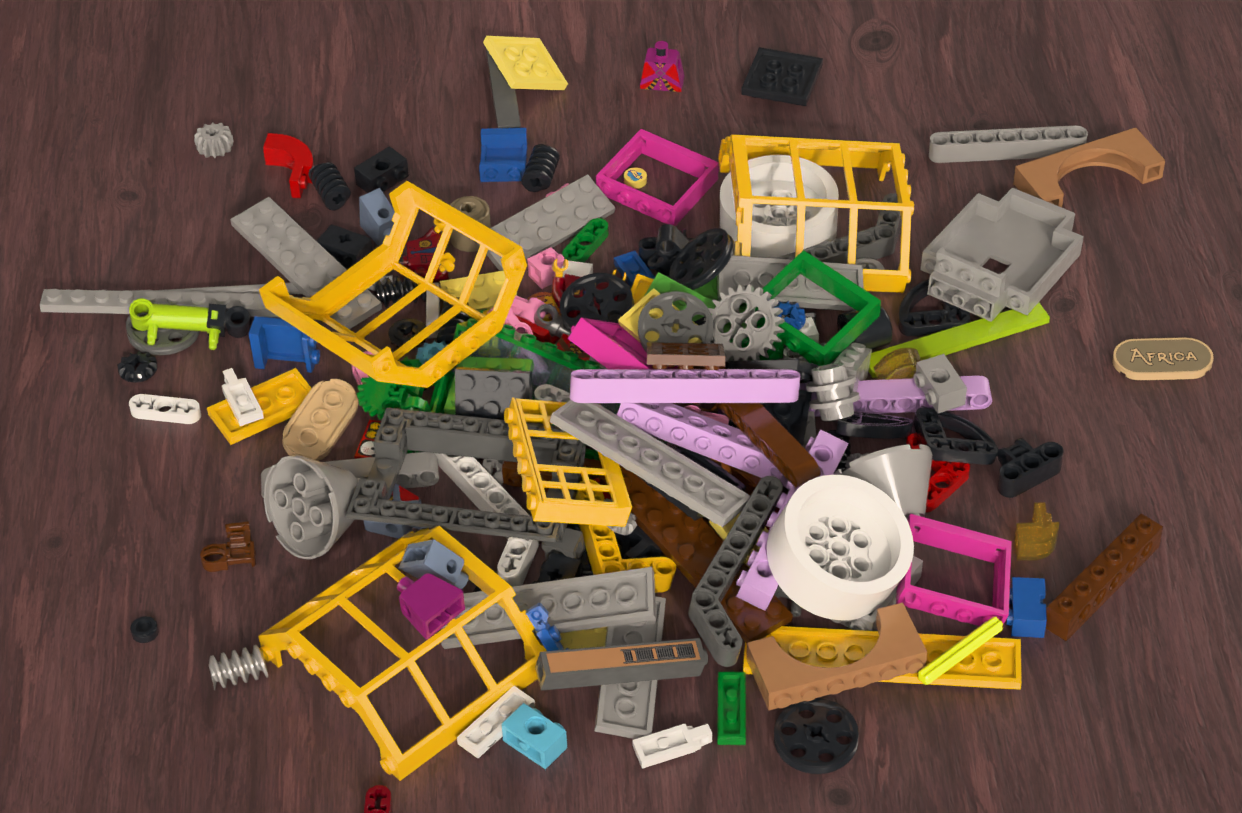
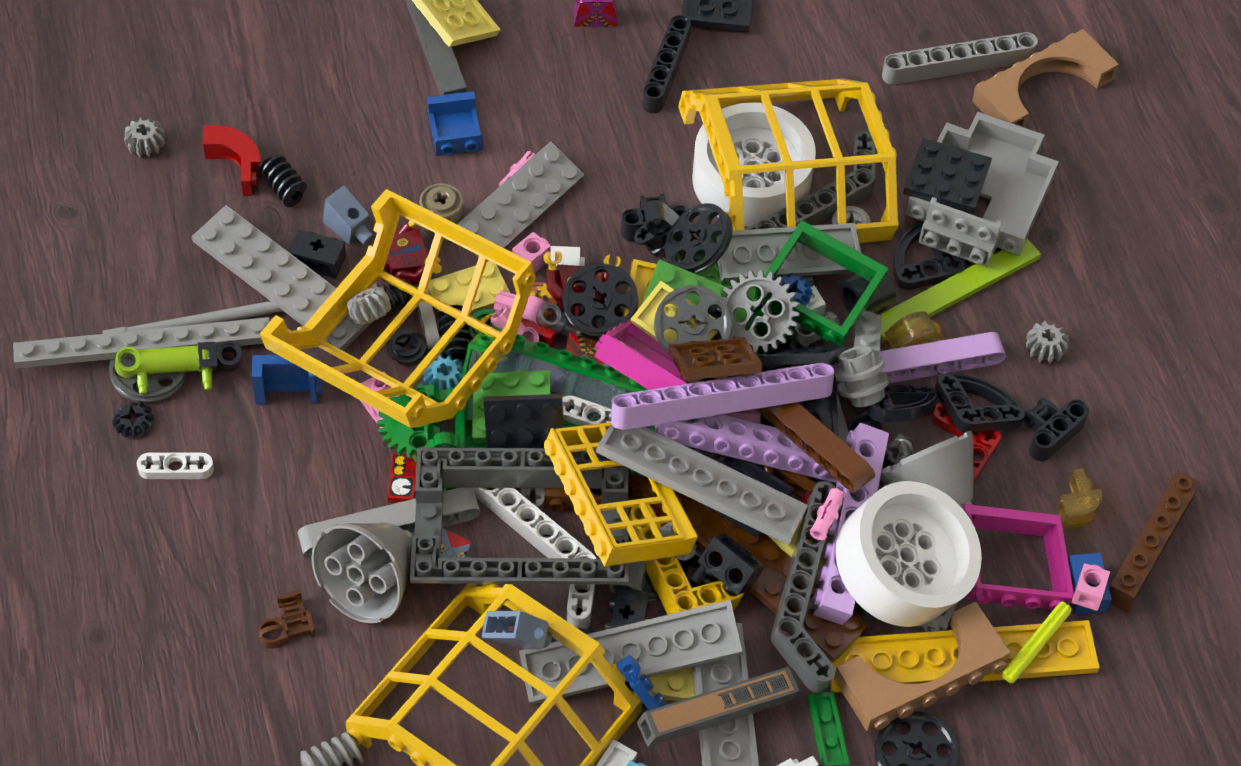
camera: 15 degrees left, 10 degrees up
(144, 629) = (220, 725): black tile -> none
(241, 398) = (257, 448): white hinge -> none
(277, 398) = (278, 451): yellow plate -> none
(320, 419) = (343, 461): tan tile -> none
(375, 287) = (368, 305): none -> light grey gear
(381, 171) = (333, 157): black brick -> none
(429, 603) = (526, 677): magenta torso -> none
(540, 168) = (497, 136): black piece -> none
(601, 232) = (562, 210): green beam -> none
(631, 265) = (619, 244): blue hinge -> none
(635, 178) = (595, 135): light yellow tile -> none
(665, 152) = (630, 107): dark pink window -> none
(666, 537) = (734, 558): none -> black brick
(720, 120) = (666, 64): none -> black beam
(766, 503) = (827, 514): none -> bright pink pin
(940, 383) = (956, 336): light grey brick -> none
(966, 234) = (948, 175): none -> black plate
(1024, 604) = (1087, 595): none -> bright pink brick
(1037, 392) = (1047, 342): none -> light grey gear
(1162, 358) = (1157, 288): tile -> none

